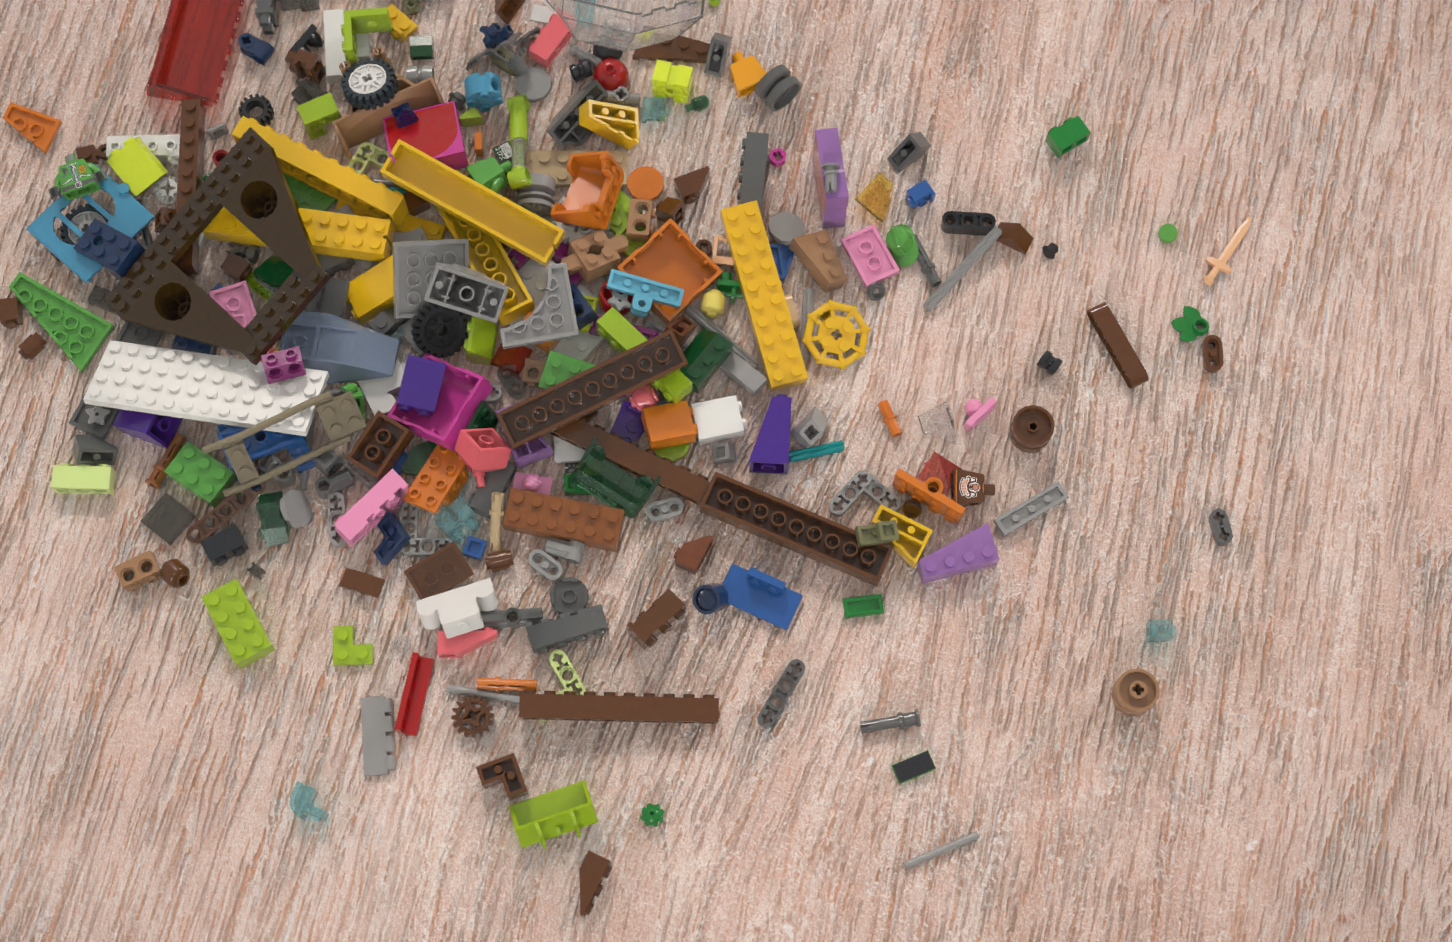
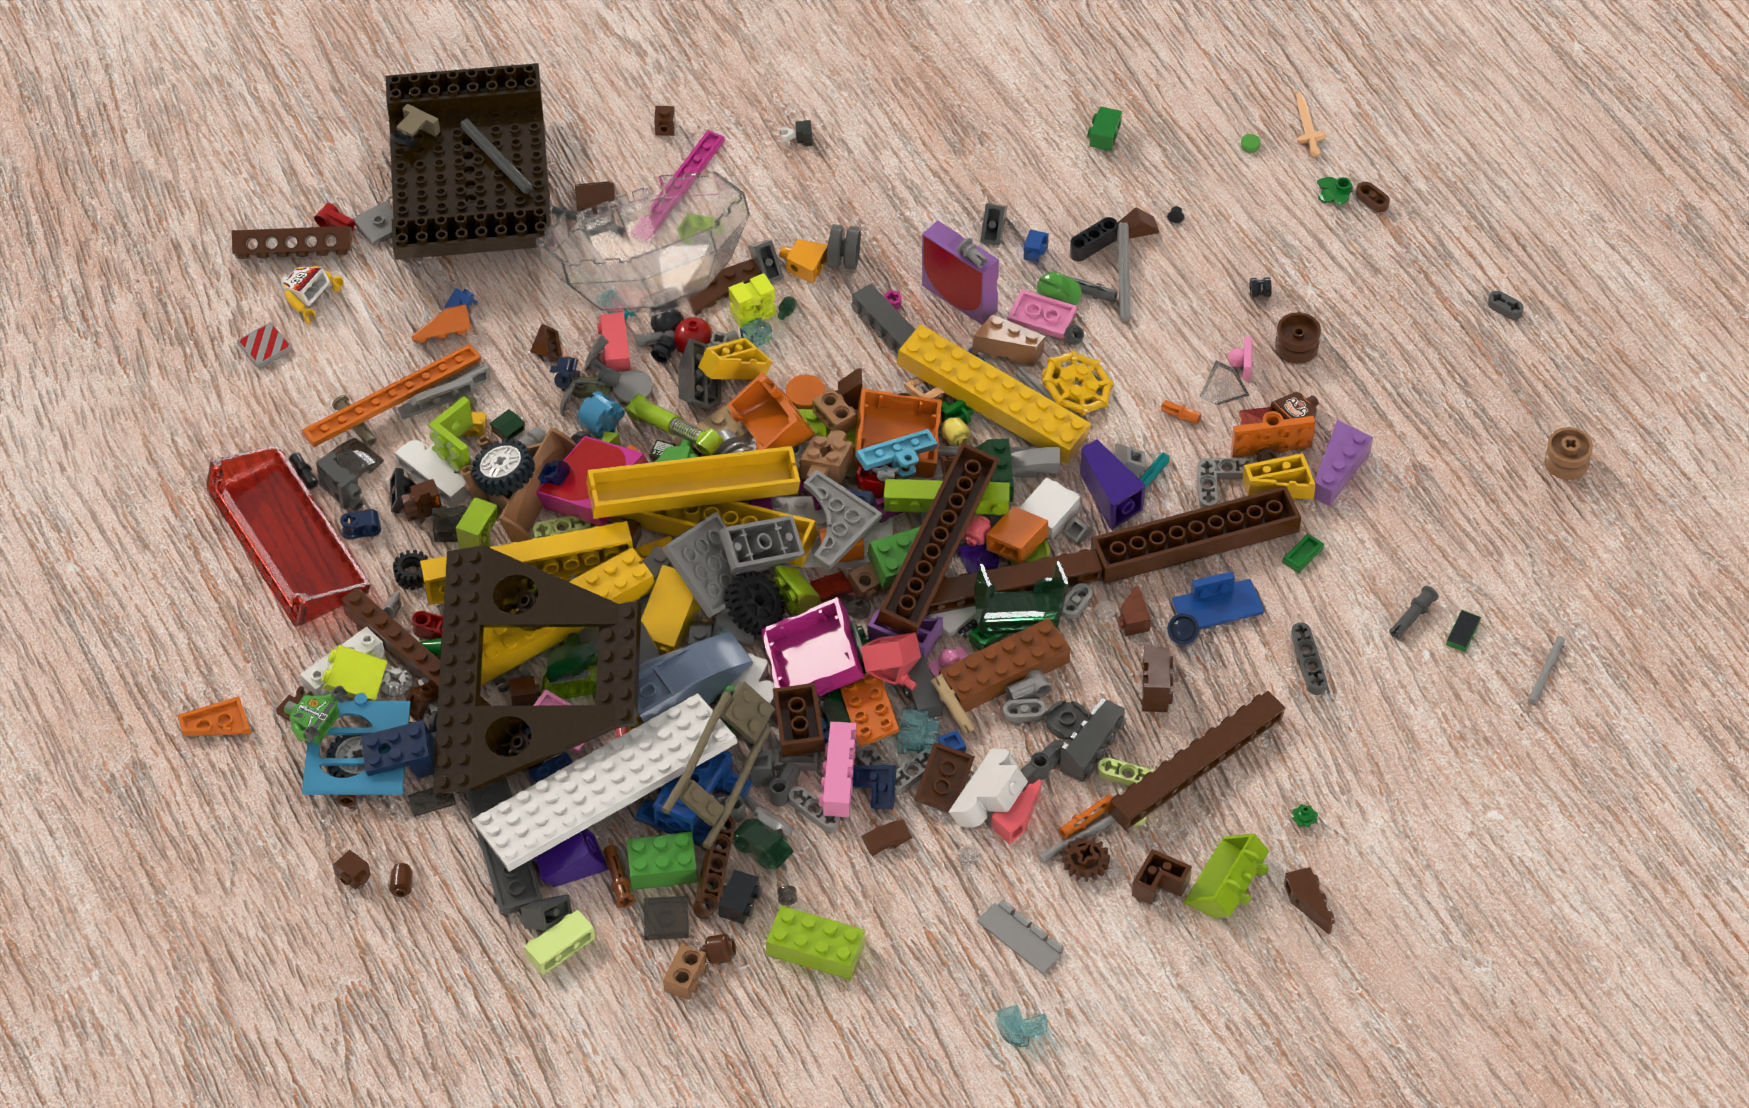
camera: 40 degrees left, 20 degrees down
(70, 325) = (419, 841): bright green wing -> none
(100, 419) = (519, 887): light grey plate -> none
(283, 365) = (659, 708): magenta brick -> none
(345, 651) = (926, 897): lime plate -> none
(414, 695) = (1020, 882): red fence -> none
(420, 385) = (786, 646): dark purple slope -> none
(499, 560) = (983, 734): reddish brown brick -> none
(540, 13) = (583, 335): white sticker -> none
(691, 185) = (844, 362): reddish brown slope -> none
(785, 227) = (959, 336): light grey tile -> none
(876, 196) = (1007, 272): clear yellow wing -> none
(877, 533) = (1265, 484): olive slope -> none
(1031, 509) = (1356, 392): light grey plate -> none
(1117, 345) = (1297, 240): reddish brown beam -> none
(1165, 625) = (1539, 401): clear light blue brick -> none

